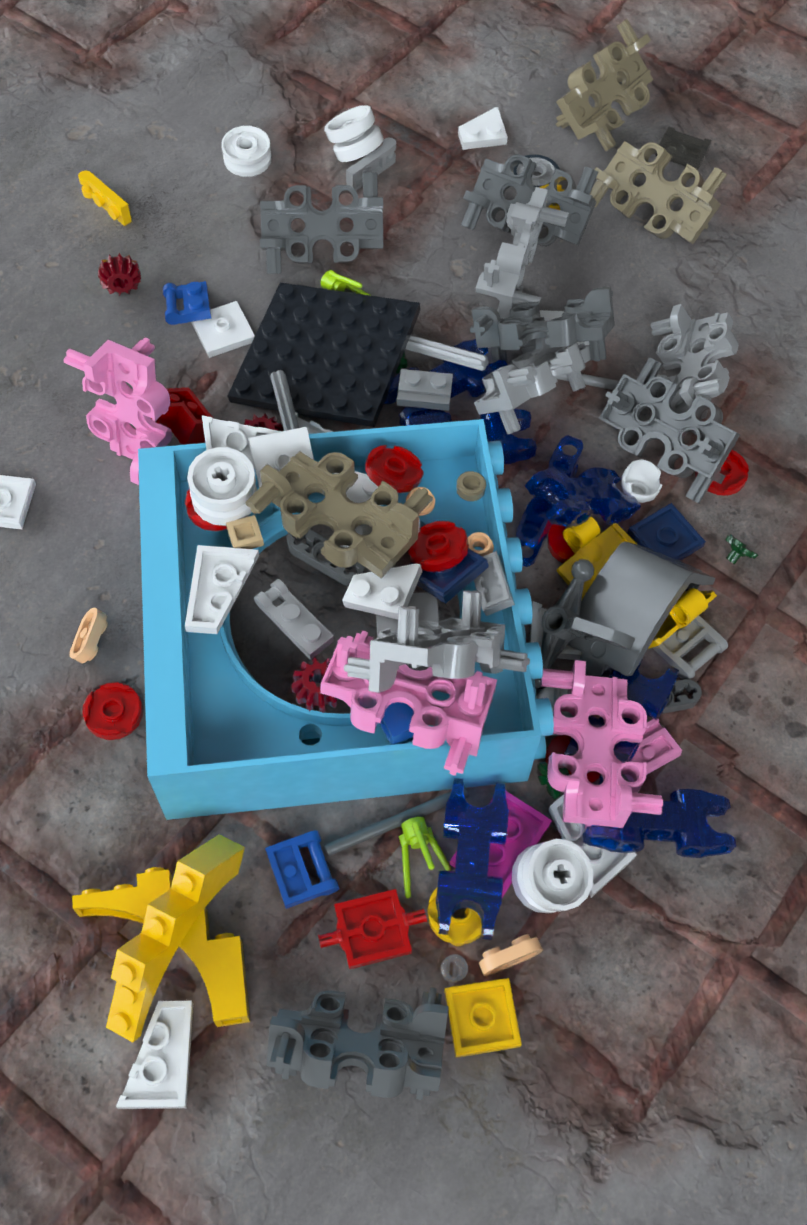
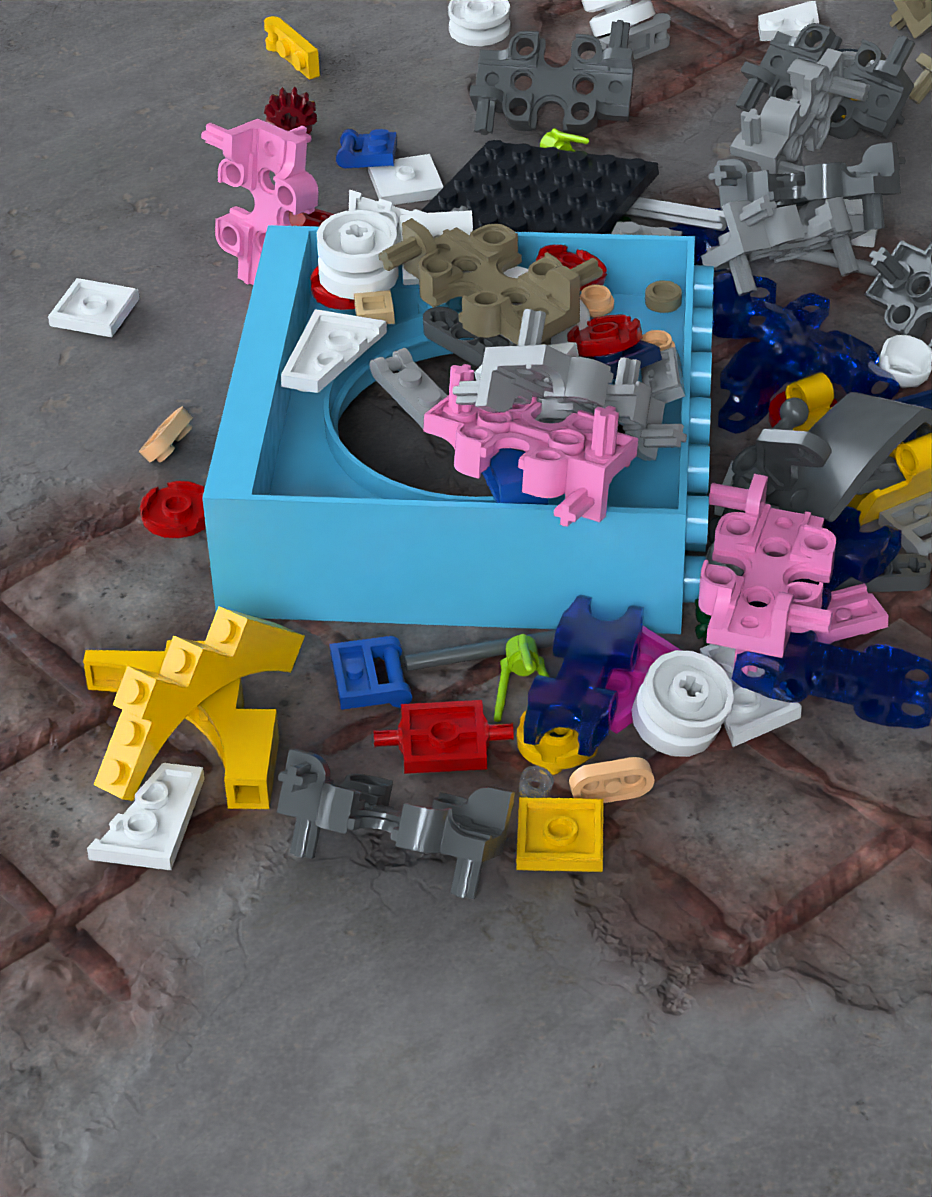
camera: 15 degrees right, 20 degrees down
(306, 687) = (420, 448): dark red gear -> none

